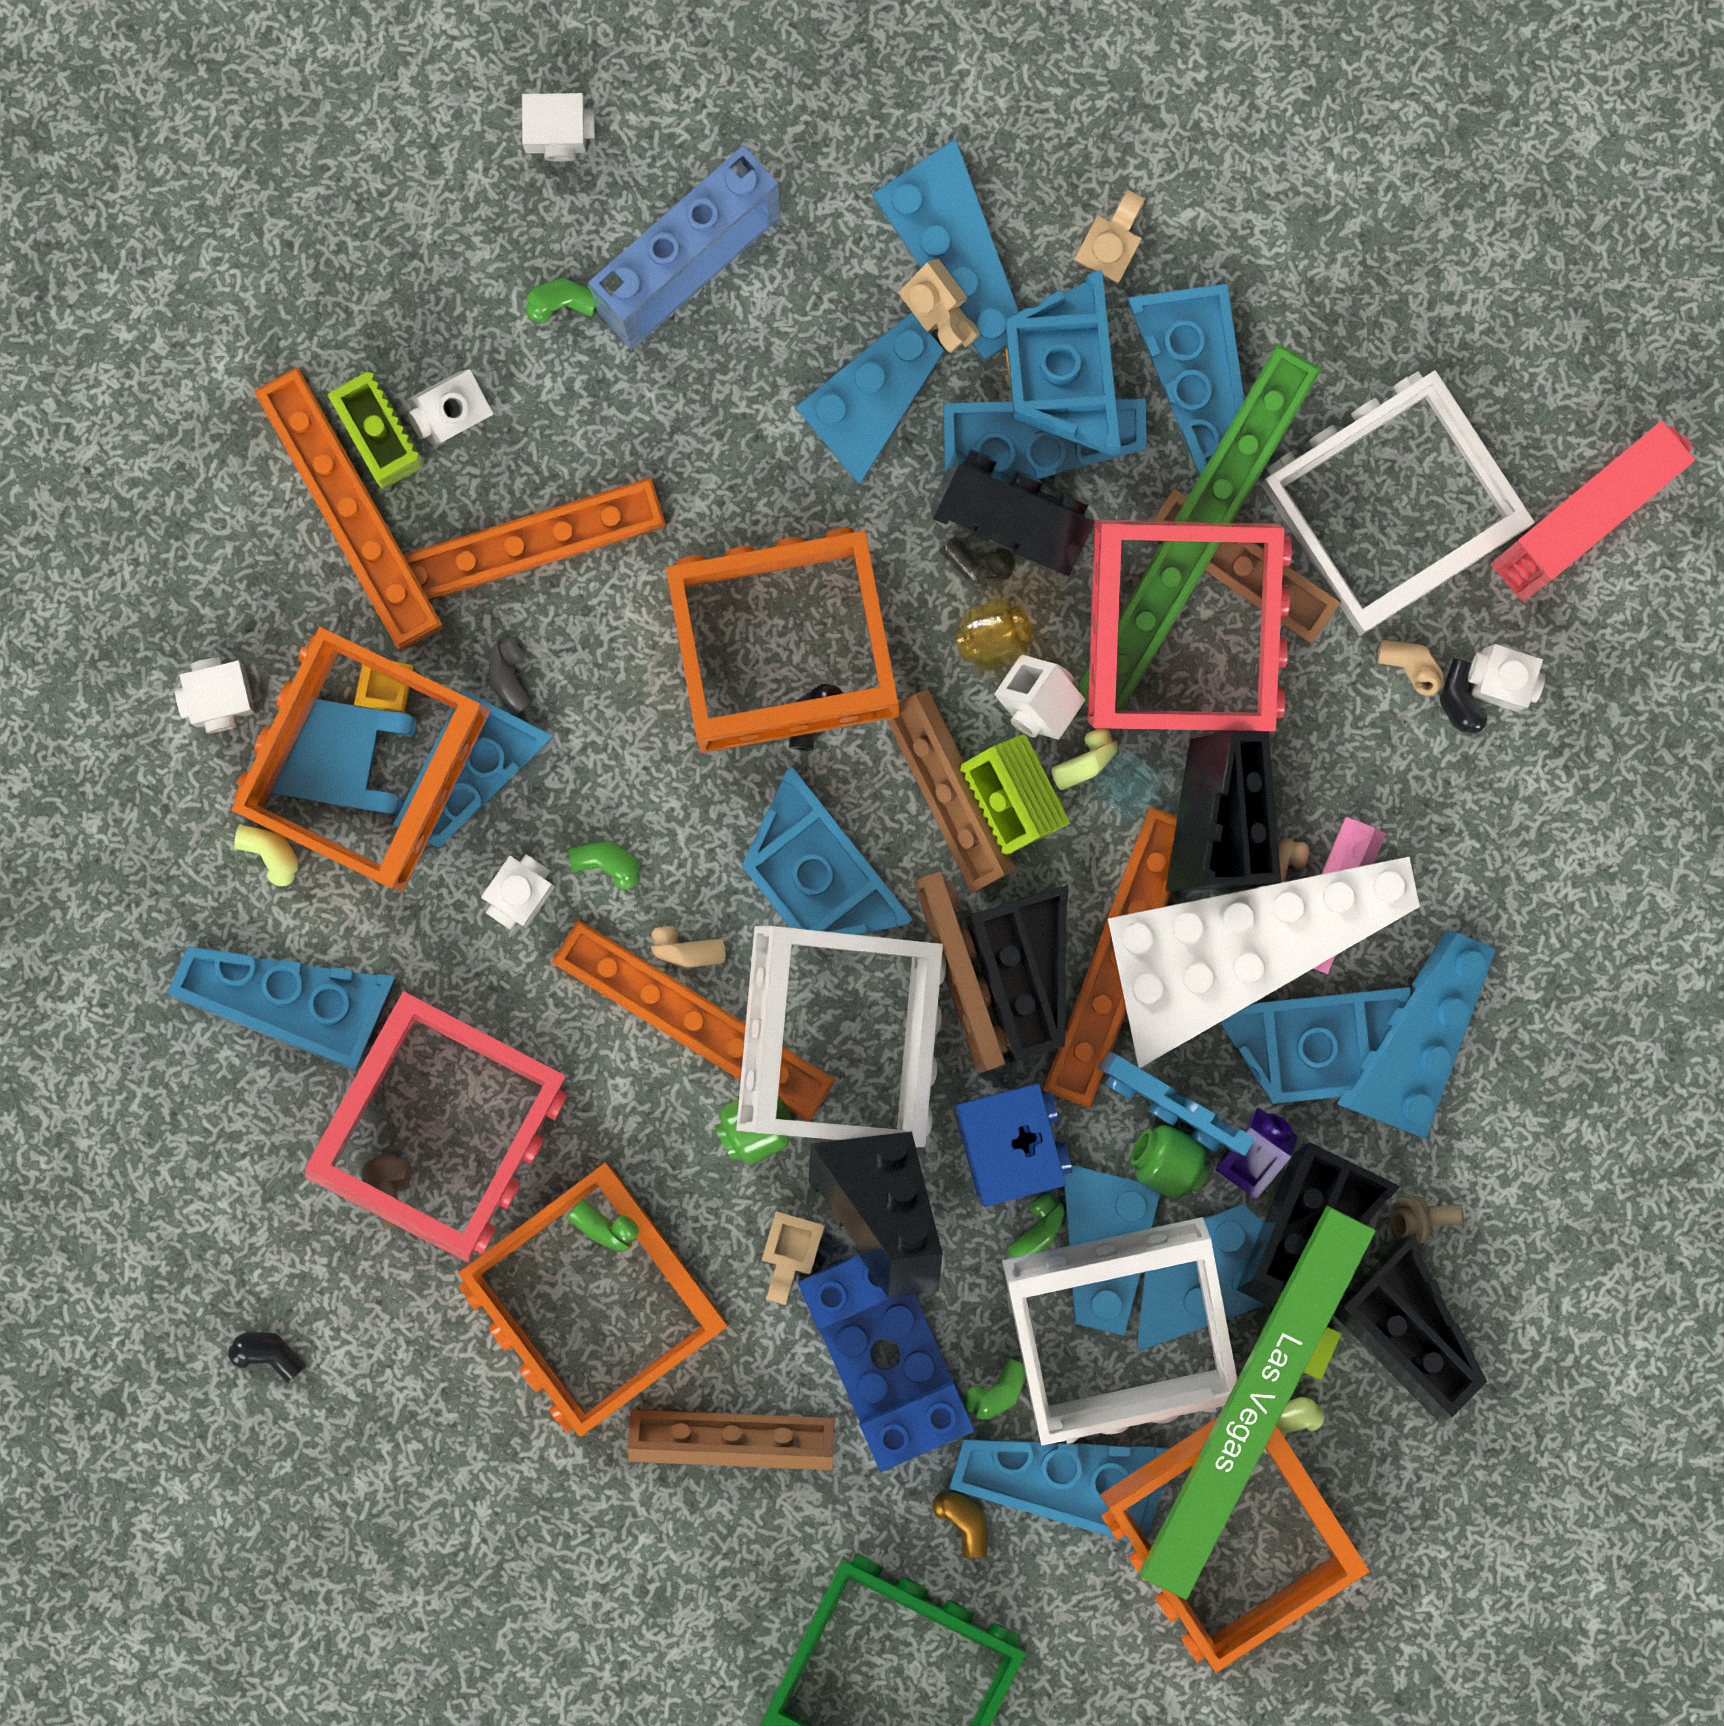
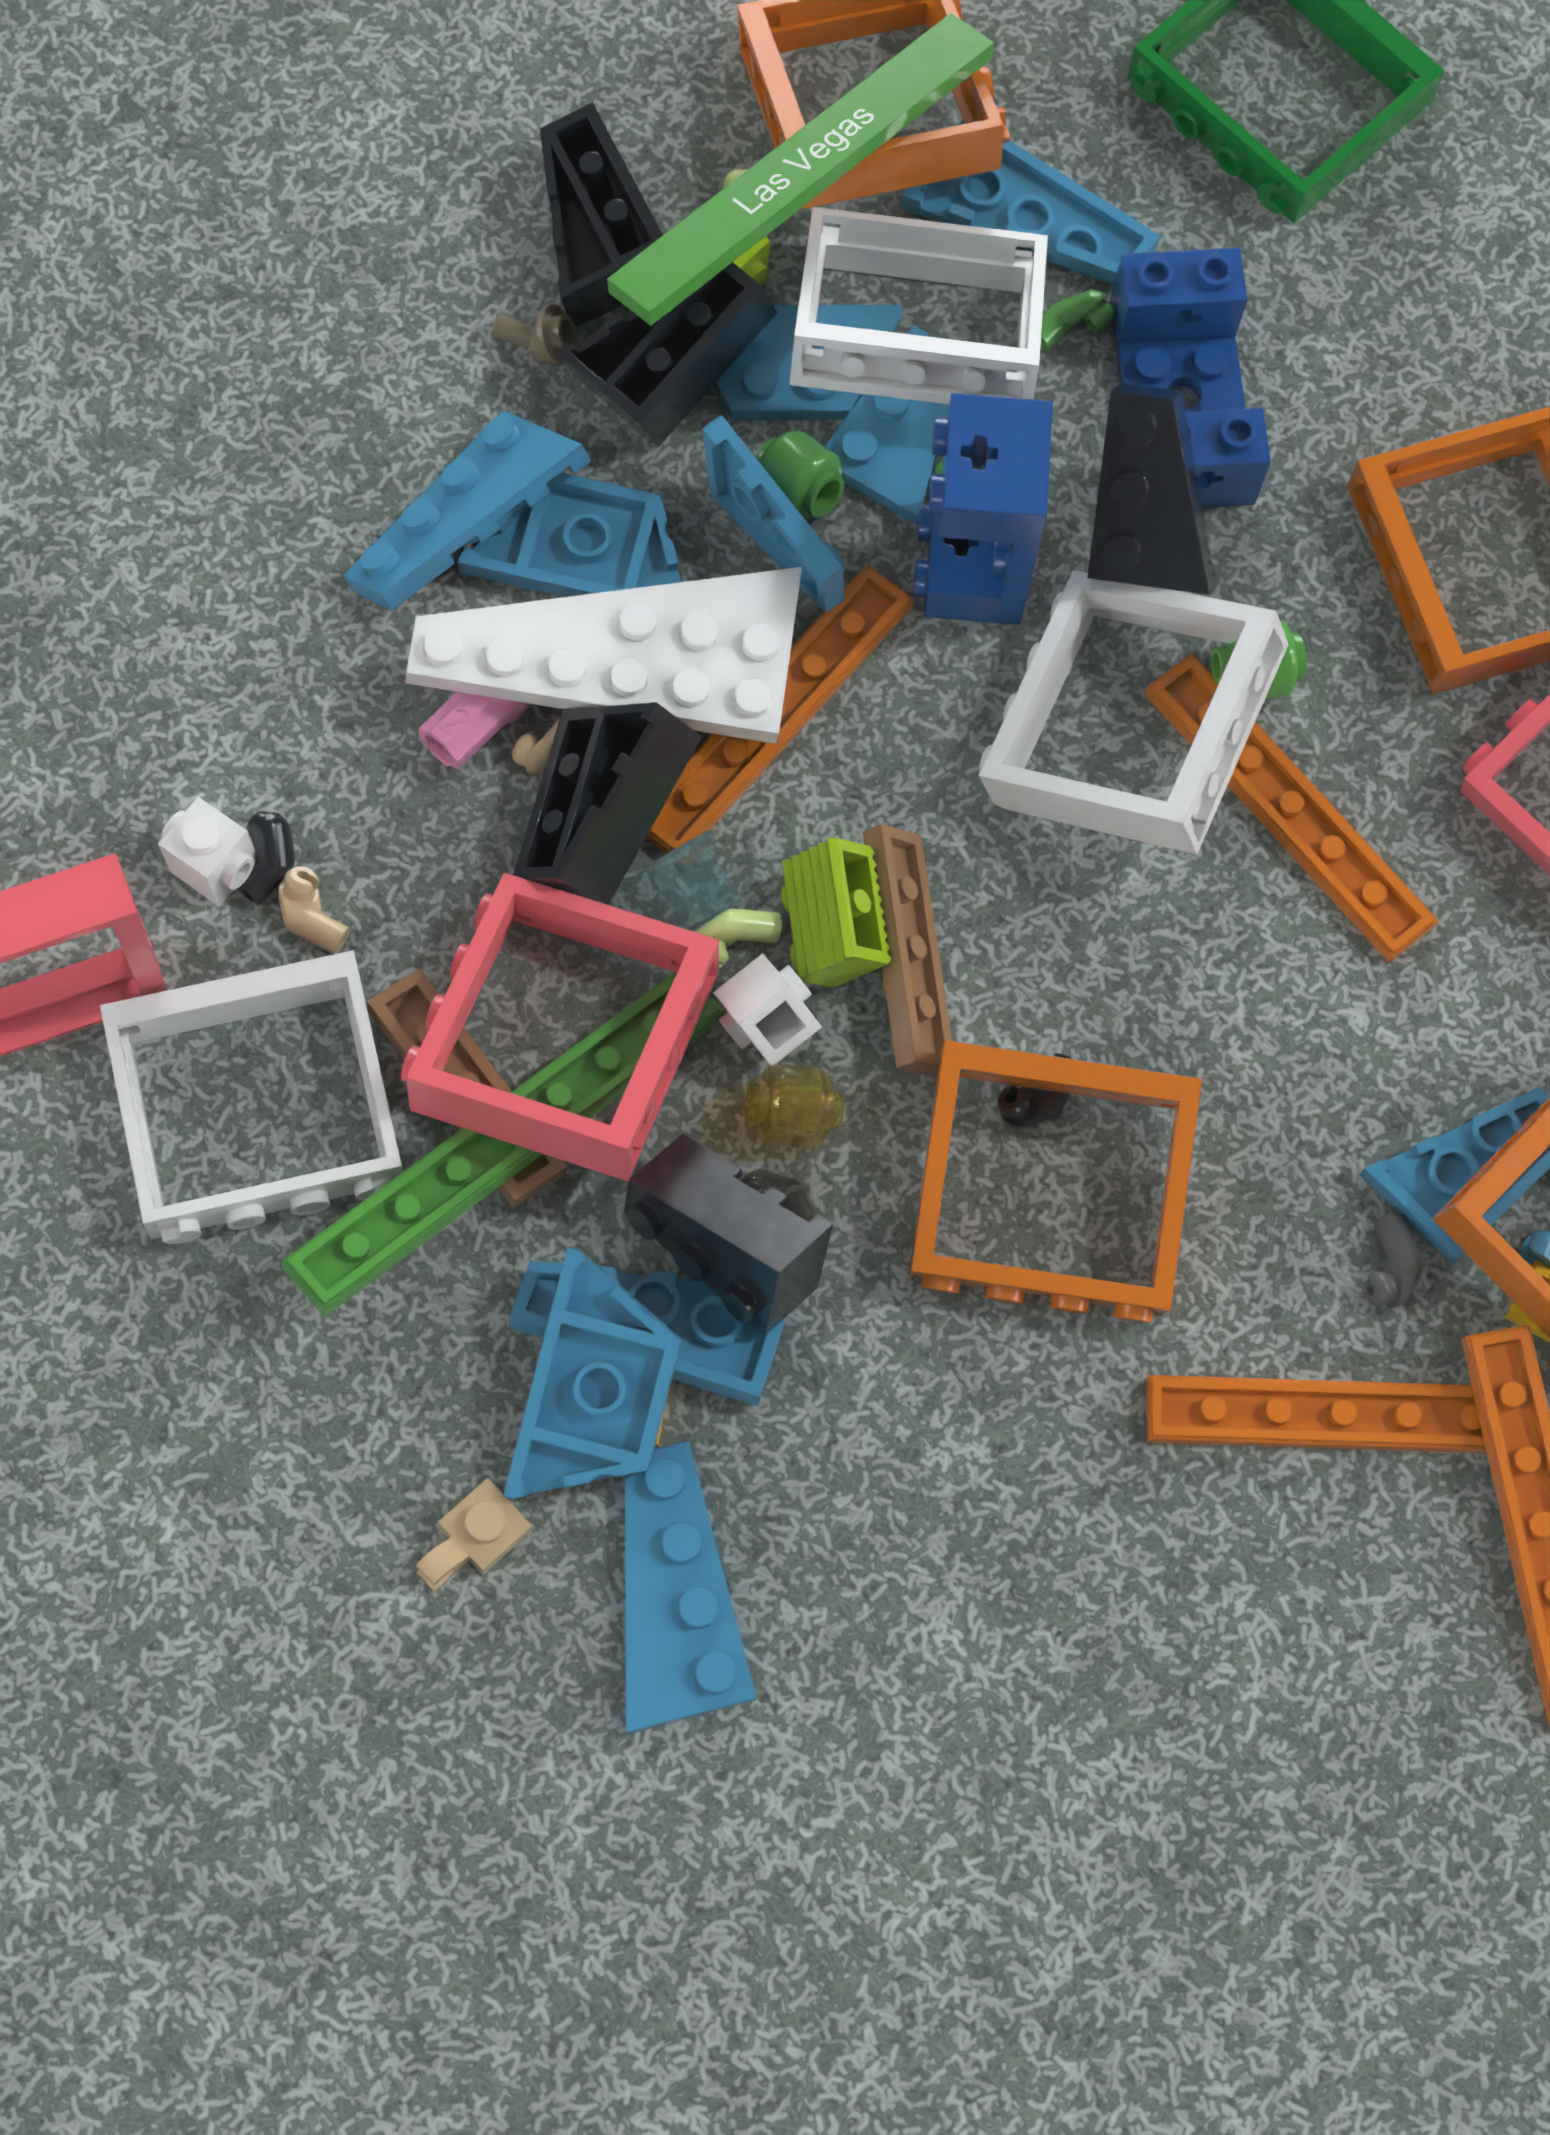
camera: 165 degrees left, 15 degrees down
(376, 429) = (1481, 1605): lime brick -> none
(465, 405) = (1382, 1603): white brick -> none
(518, 892) = (1458, 1003): white brick -> none
(555, 295) = (1195, 1708): bright green arm -> none
(556, 125) = (1135, 1926): white brick -> none
(601, 1230) = (1462, 584): bright green arm -> none
(610, 858) = (1334, 1014): bright green arm -> none
(687, 247) = (1031, 1673): medium blue window -> none
(688, 953) = (1281, 878): tan arm -> none
(731, 1439) = (1384, 361): medium nougat plate -> none
(791, 1248) = (1257, 528): tan plate -> none
(815, 870) = (1095, 915): dark azure wing -> none
(871, 394) = (841, 1448): dark azure wing -> none
(936, 302) = (721, 1527): tan plate -> none
(967, 991) = (964, 726): medium nougat plate -> none
(967, 1517) = (1150, 209): pearl gold arm -> none
(1024, 968) = (889, 729): black wedge -> none
(1195, 360) = (428, 1347): dark azure wing -> none
(1266, 1156) = (679, 458): dark purple bracket -> none

